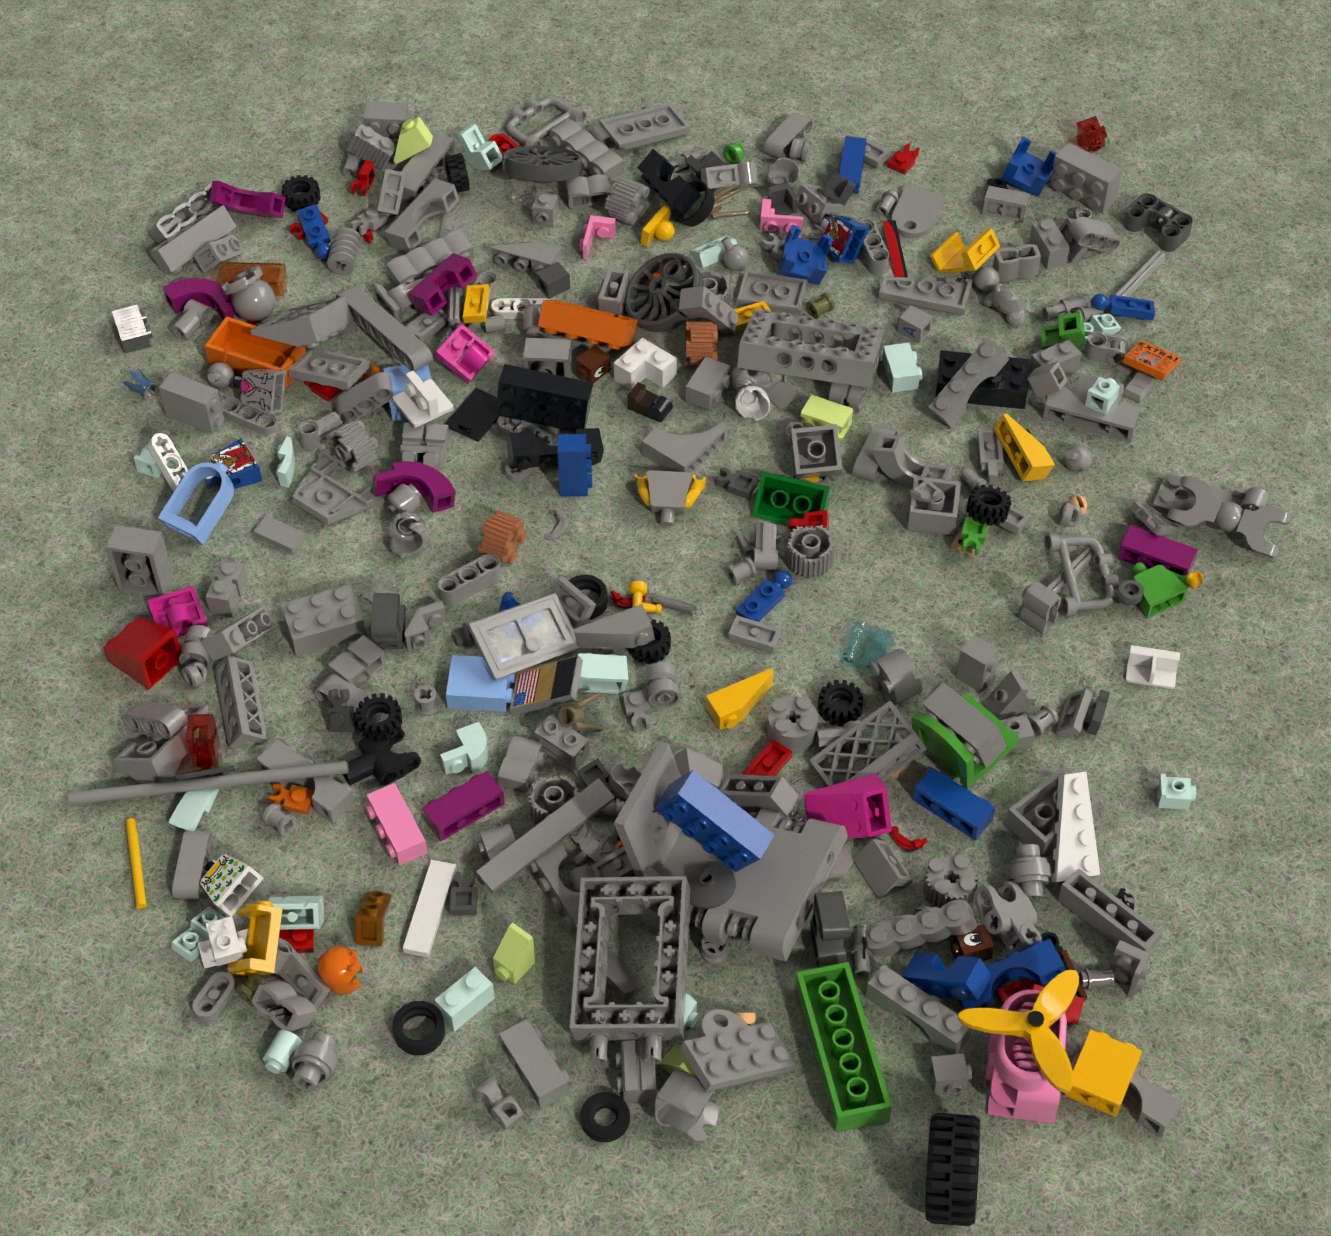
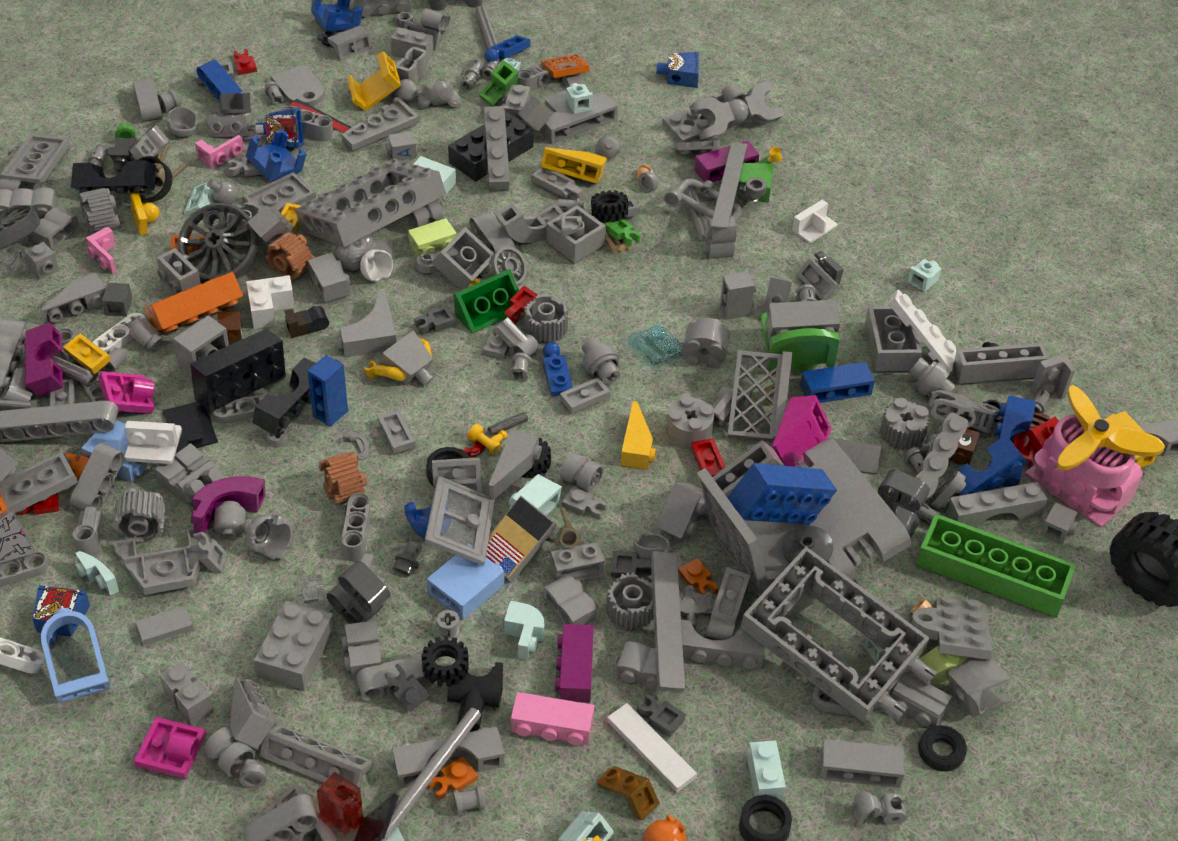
camera: 55 degrees left, 5 degrees down
(139, 561) = (99, 732): light grey brick -> none
(144, 651) = (188, 794): red slope -> none
(361, 512) = (212, 554): none -> light grey plate
(514, 954) = (755, 711): yellowish green slope -> none
(591, 539) = (396, 431): none -> light grey plate
(782, 199) = (204, 132): dark grey panel -> none
(800, 619) = (601, 361): none -> light grey piece
(820, 305) = (325, 180): olive bush -> none
(843, 691) = (694, 378): black tyre -> none
(847, 487) = (509, 262): none -> light grey wheel
(896, 960) = (953, 484): none -> light grey plate
(905, 843) = (844, 430): red piece -> none
(1106, 570) = (729, 186): none -> light grey piece
(1251, 443) = (681, 69): none -> blue torso

